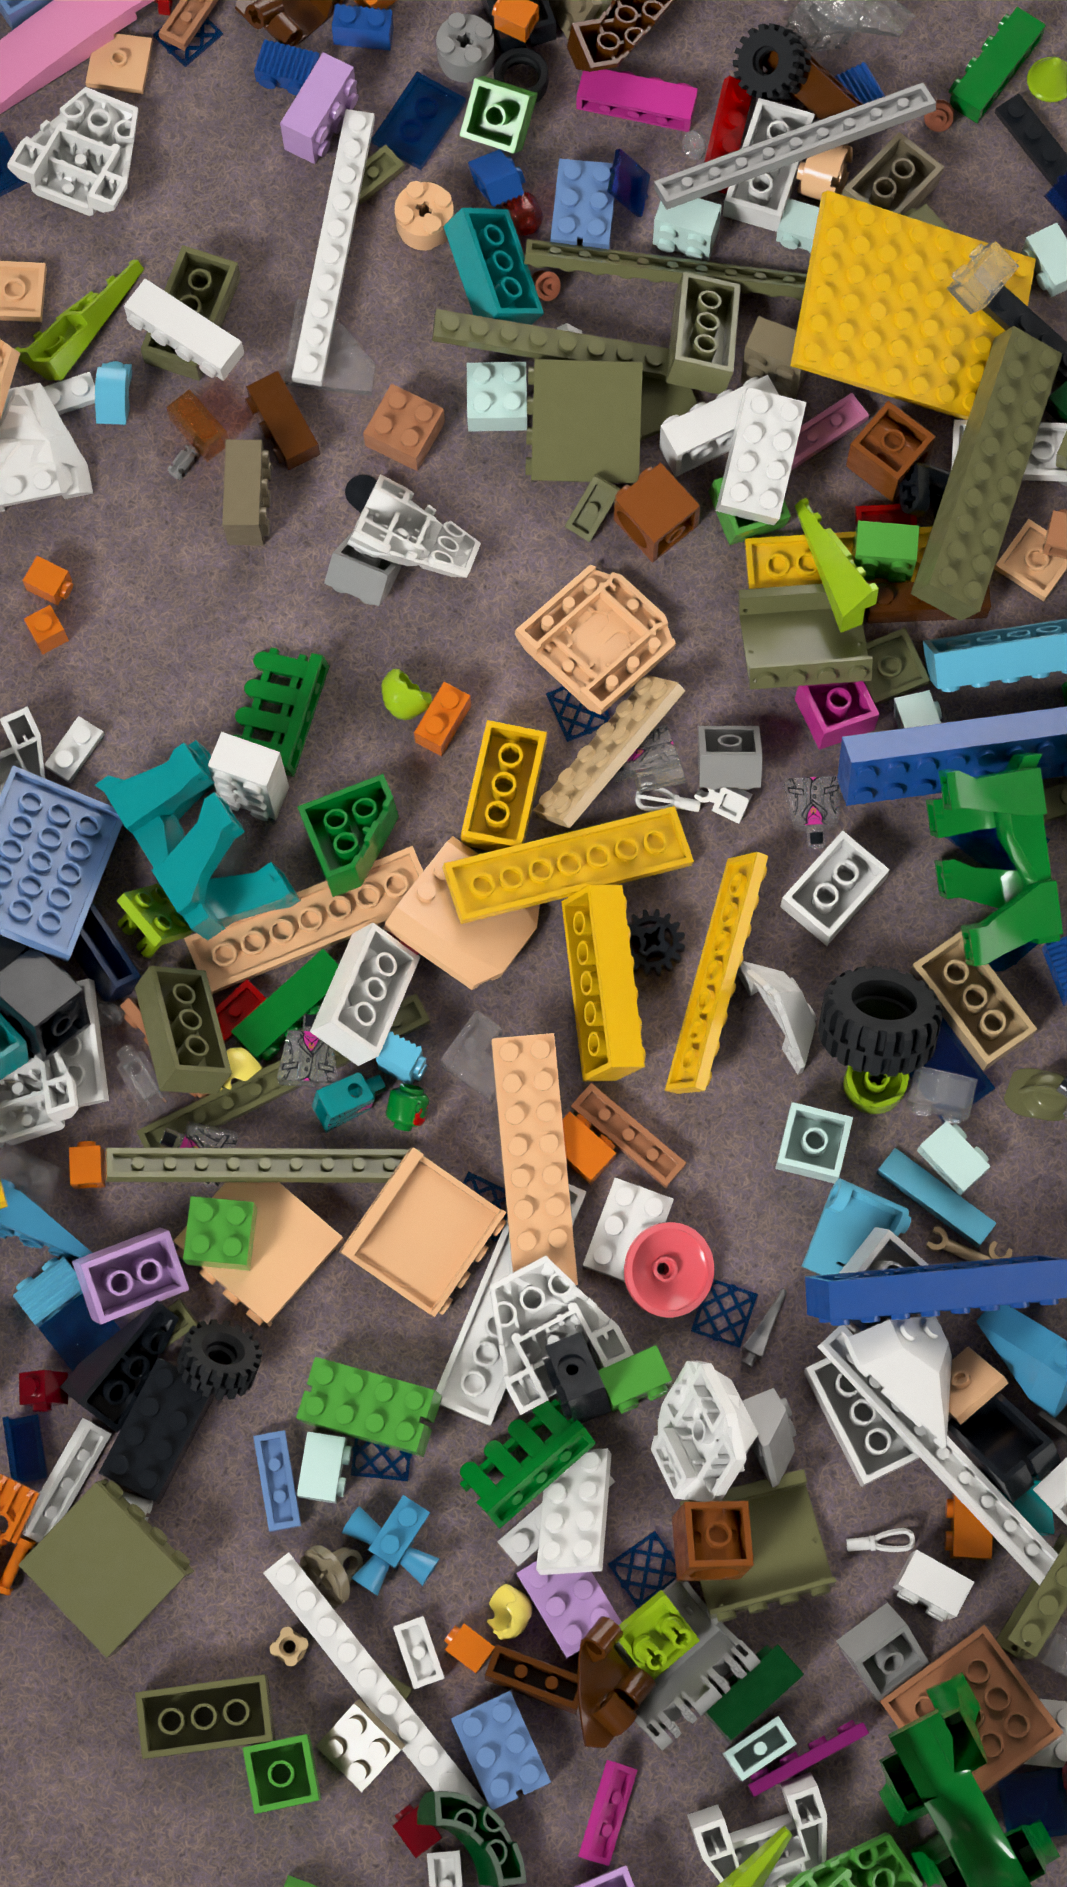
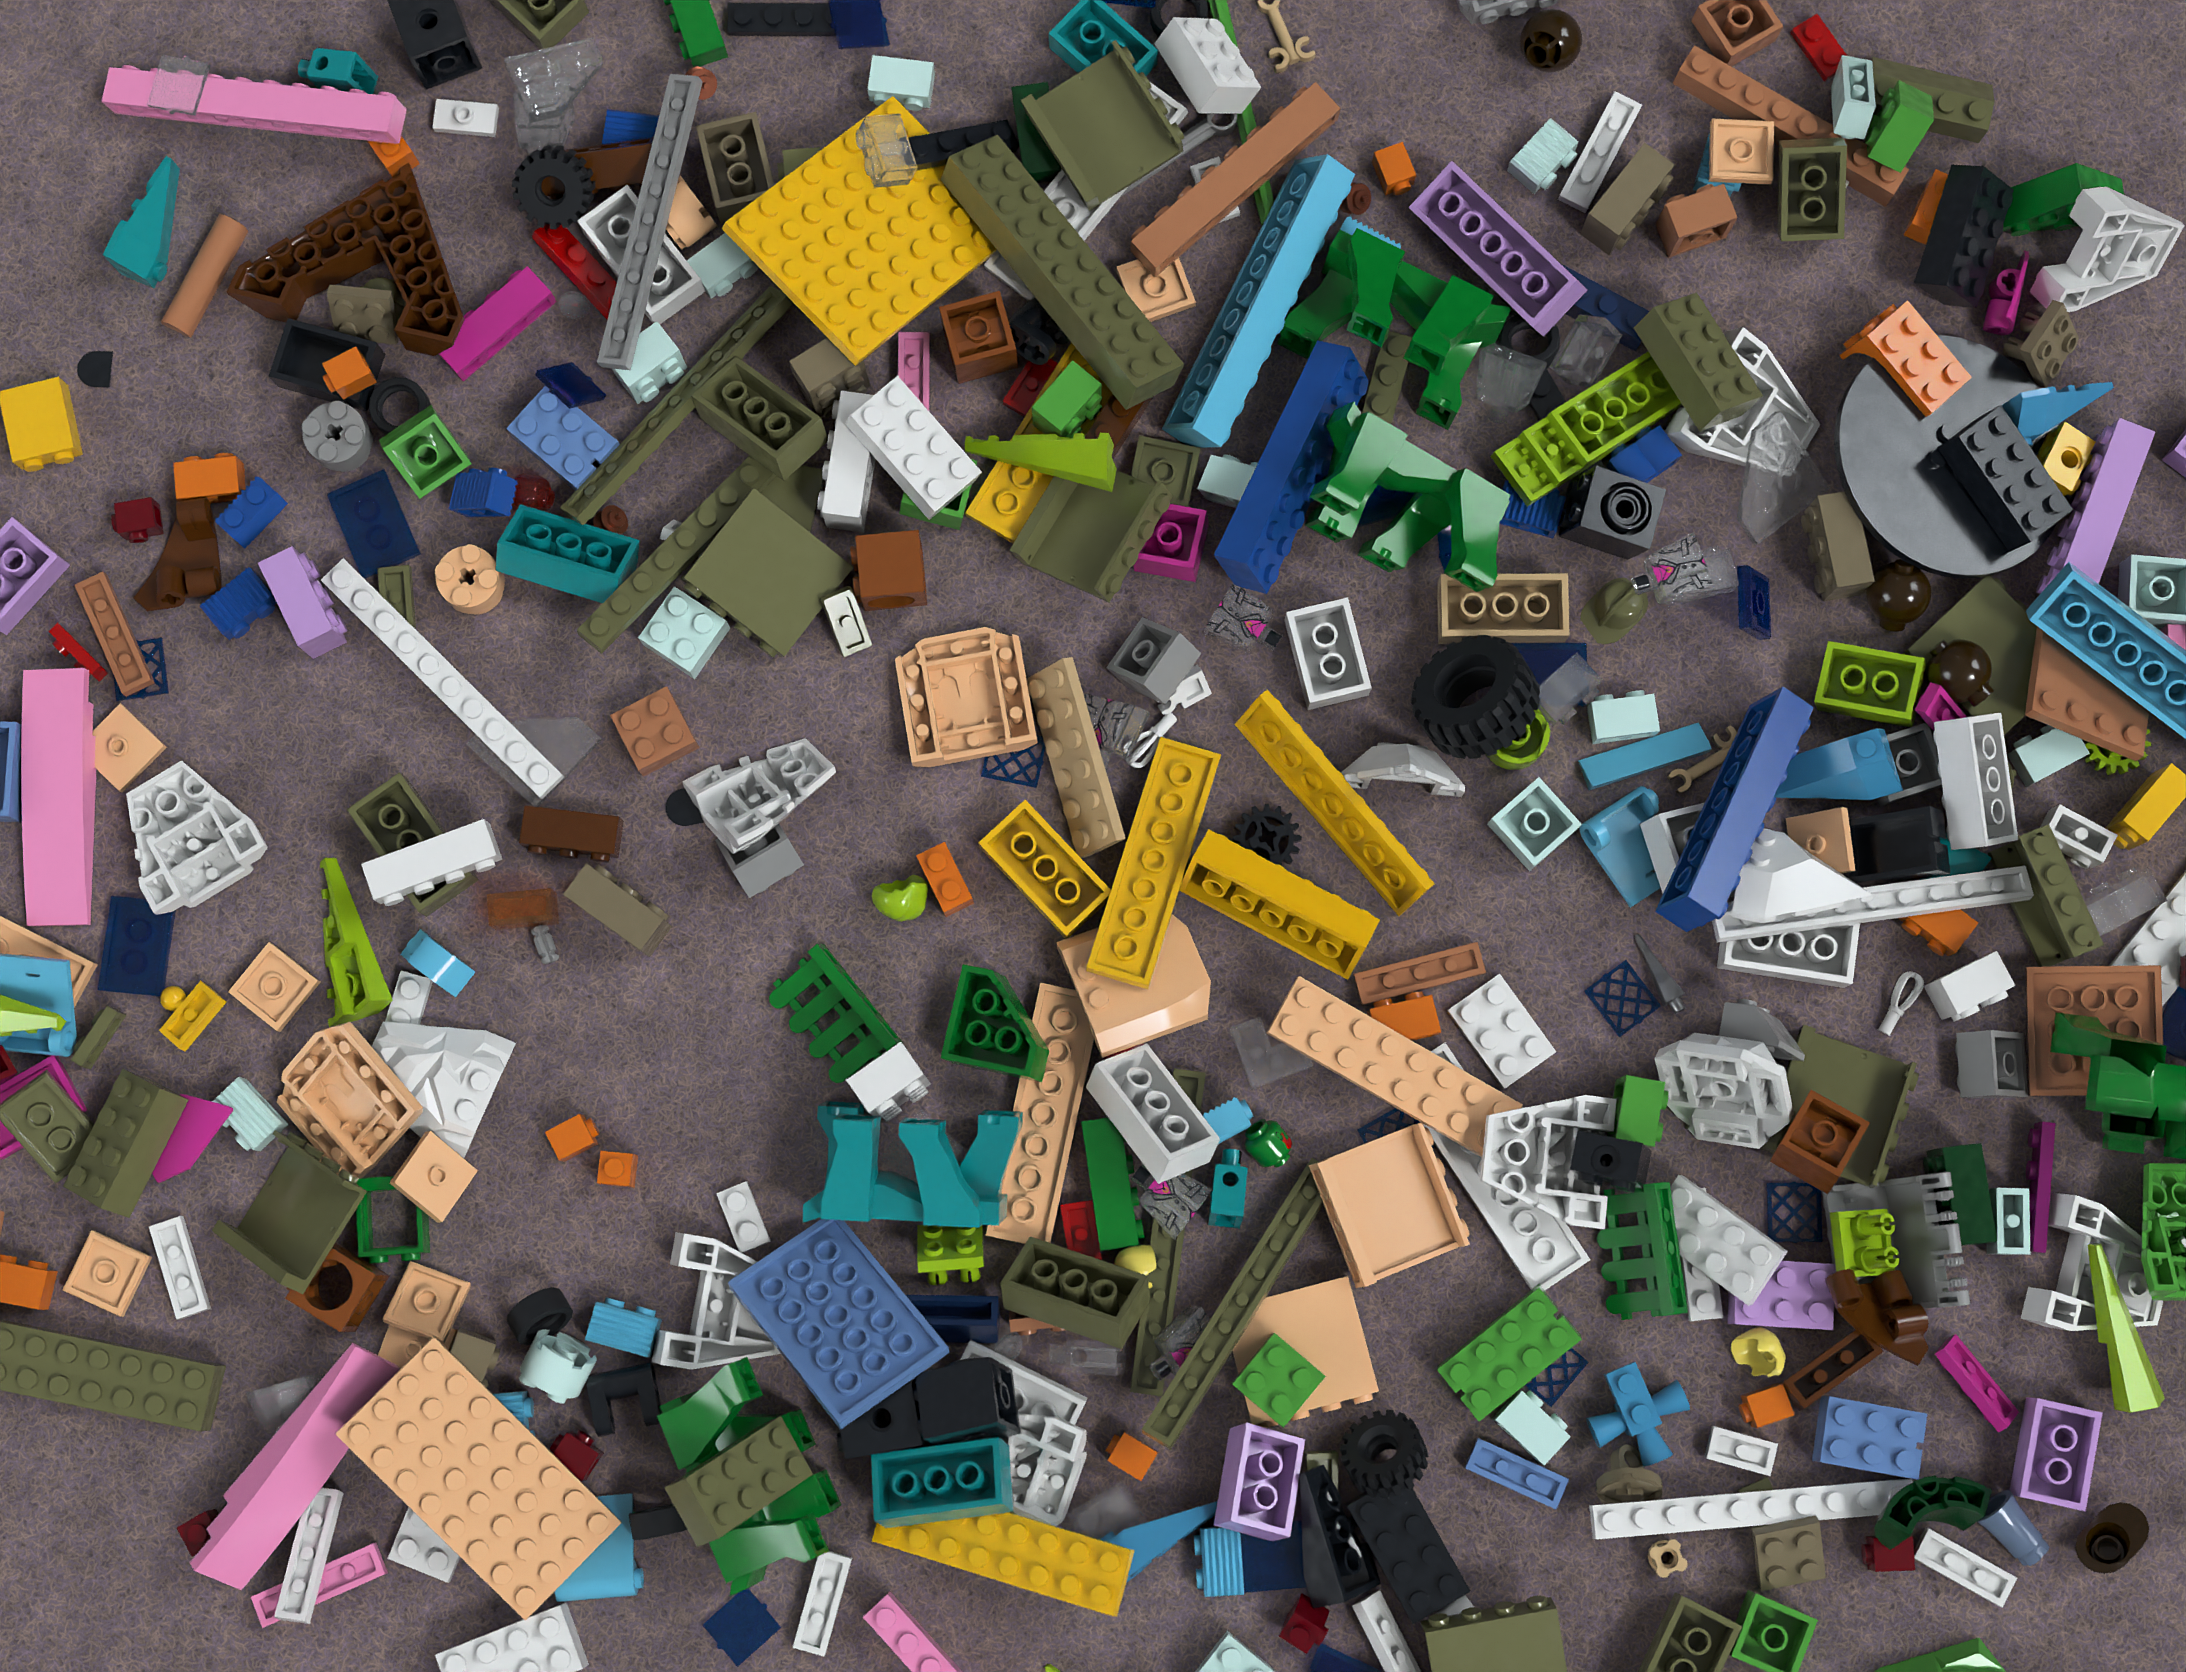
camera: 55 degrees left, 5 degrees up
(686, 1272) = (1574, 1013): coral dish -> none

